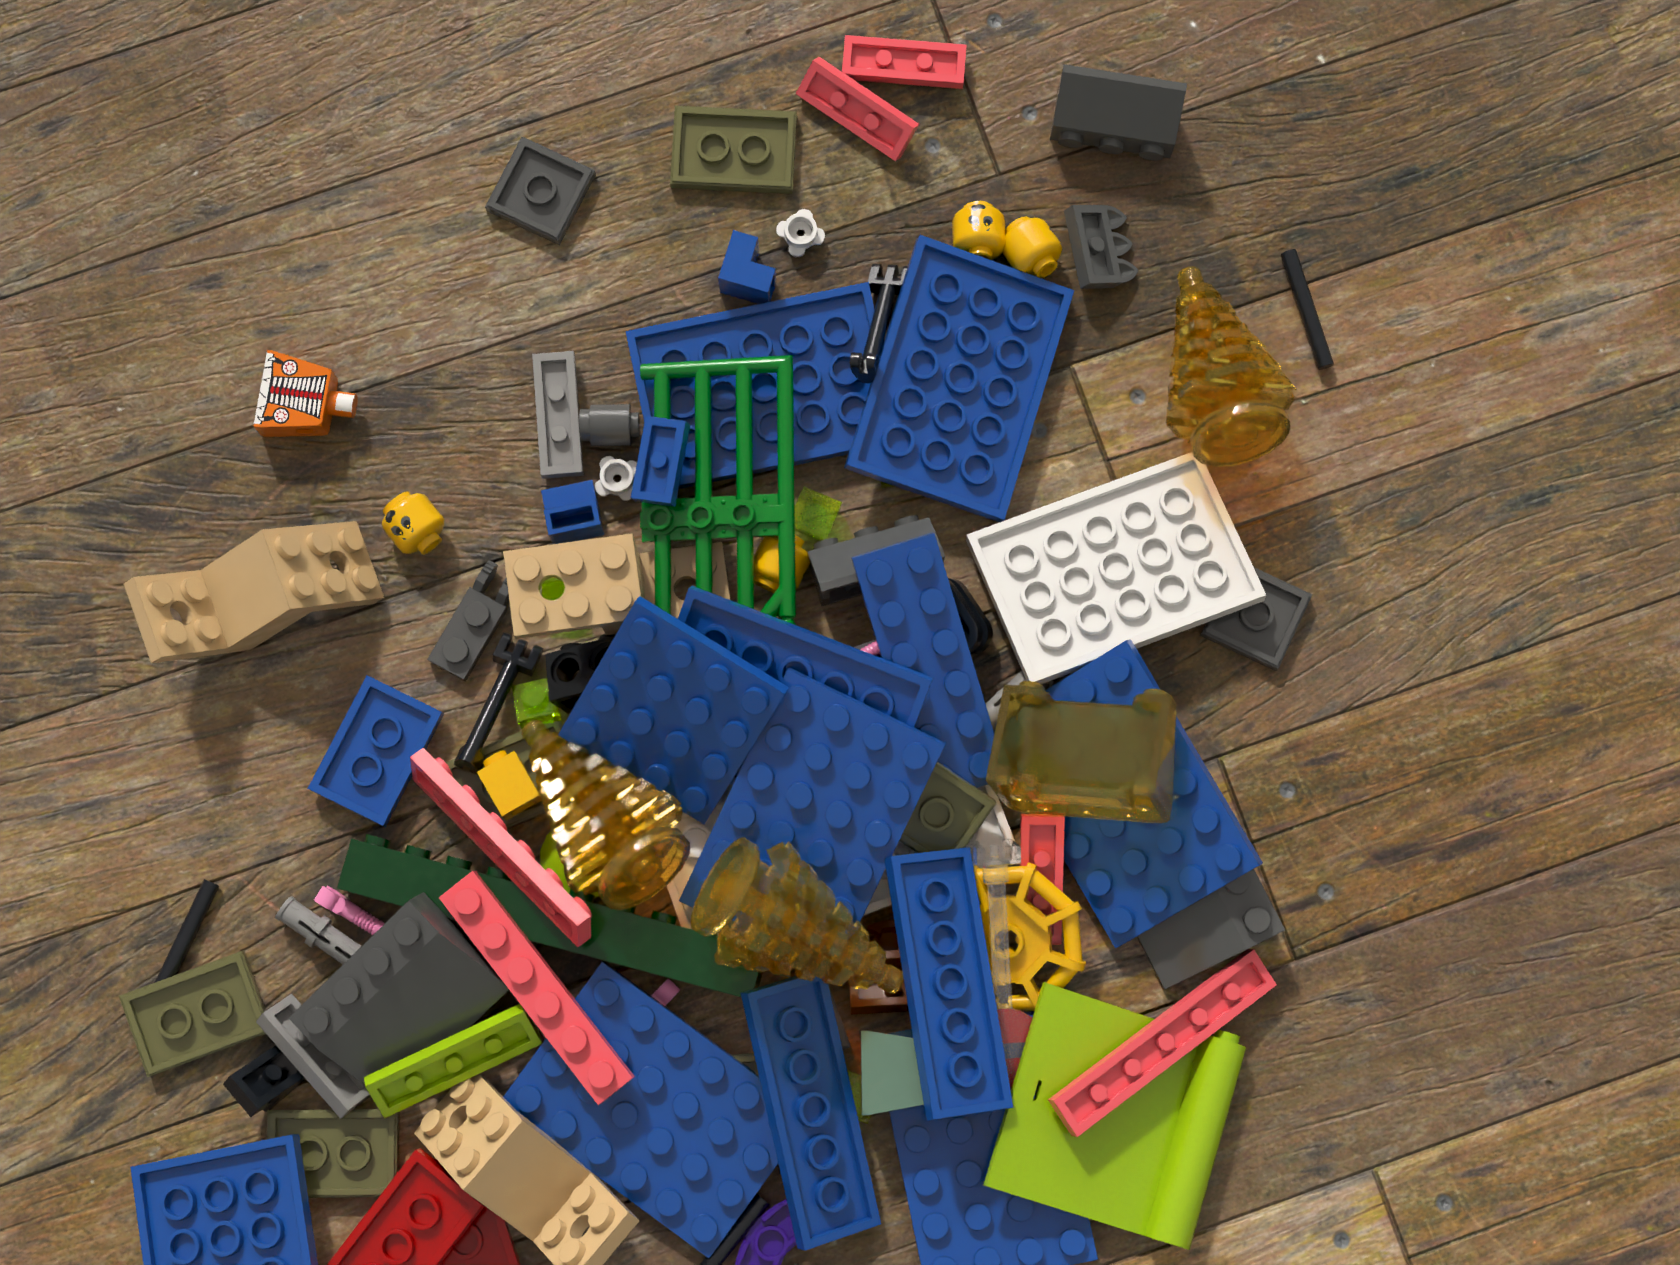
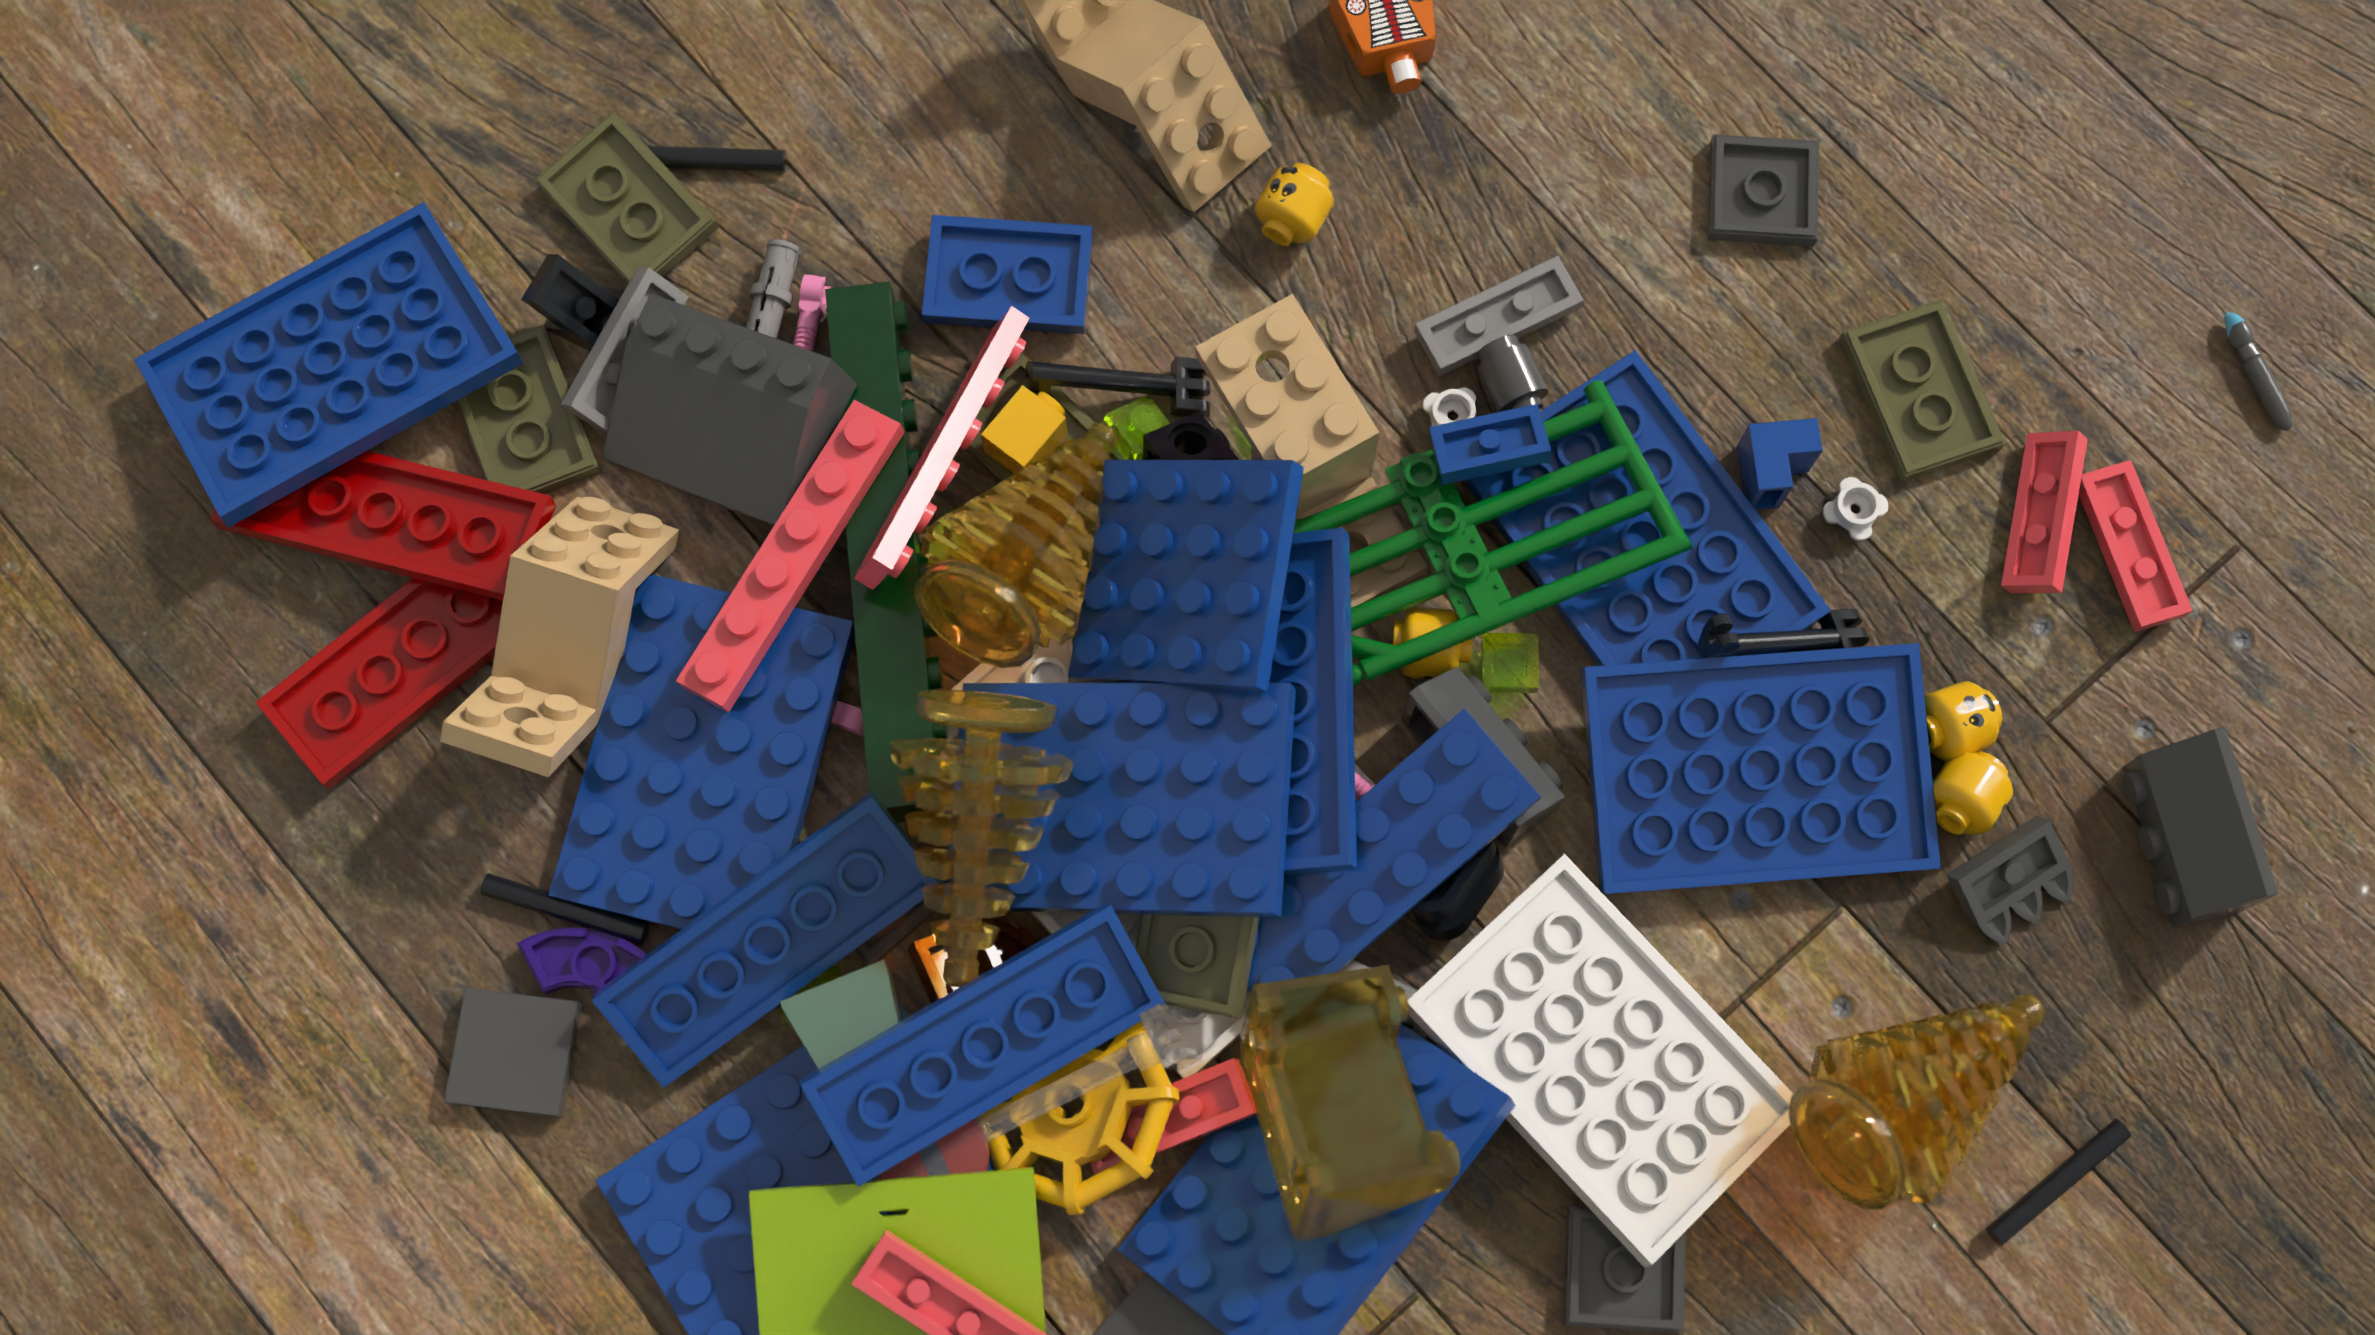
camera: 70 degrees right, 5 degrees down
(452, 1060) = (670, 497): lime plate -> none
(471, 626) = (1186, 319): dark grey hinge -> none
(572, 512) = (1386, 378): blue piece -> none

